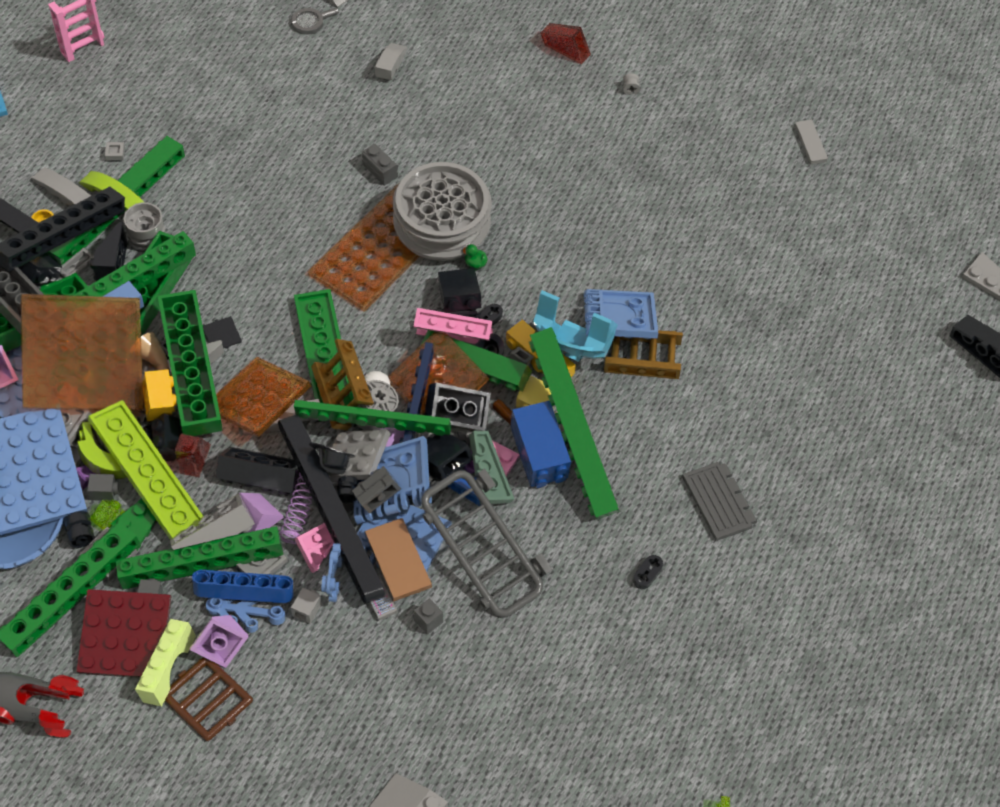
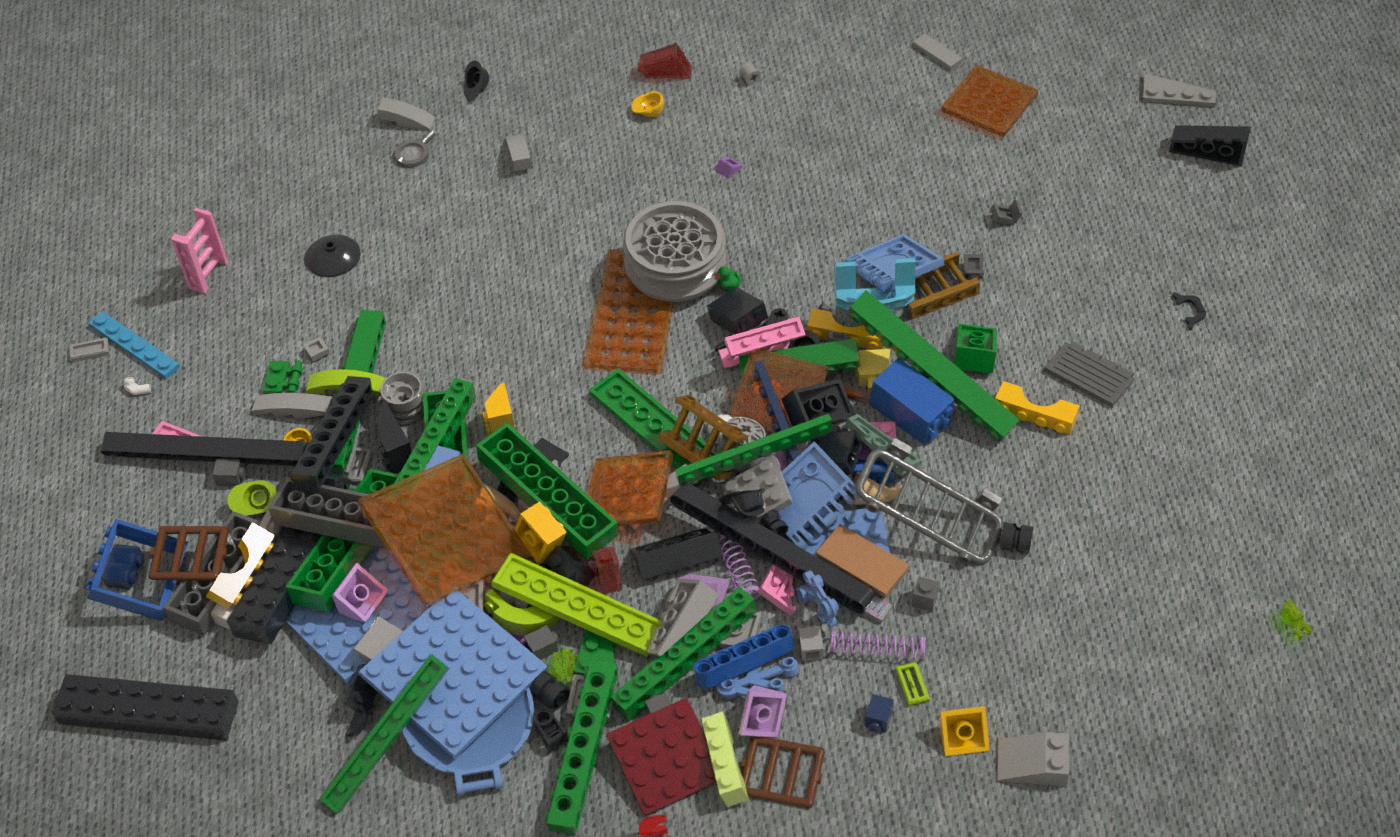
camera: 25 degrees left, 5 degrees down
(58, 562) = (552, 731): none -> black piece
(69, 160) = (277, 375): none -> green plate
(185, 78) = (332, 255): none -> black dish
(207, 278) = (497, 410): none -> yellow slope
(315, 695) = (879, 713): none -> dark blue brick
(329, 614) = (921, 639): none -> lavender piece
(350, 700) = (916, 700): none -> lime tile
(370, 750) = (964, 731): none -> yellow slope
(376, 489) = (805, 508): dark grey brick -> none
(379, 164) = (579, 242): dark grey brick -> none
(456, 510) = (871, 487): none -> tan hat
(525, 71) = (649, 104): none -> yellow hat
(538, 608) = (1016, 537): none -> black wheel
(552, 158) = (728, 167): none -> medium lavender slope
(635, 425) = (975, 348): none -> green slope
(651, 574) = (1082, 460): black beam -> none
(660, 524) = (1058, 416): none -> yellow arch
(690, 352) = (973, 266): none -> dark grey bracket
(755, 320) = (1006, 214): none -> dark grey bracket
(821, 209) = (989, 100): none -> clear orange plate
(852, 476) = (1198, 305): none -> black helmet

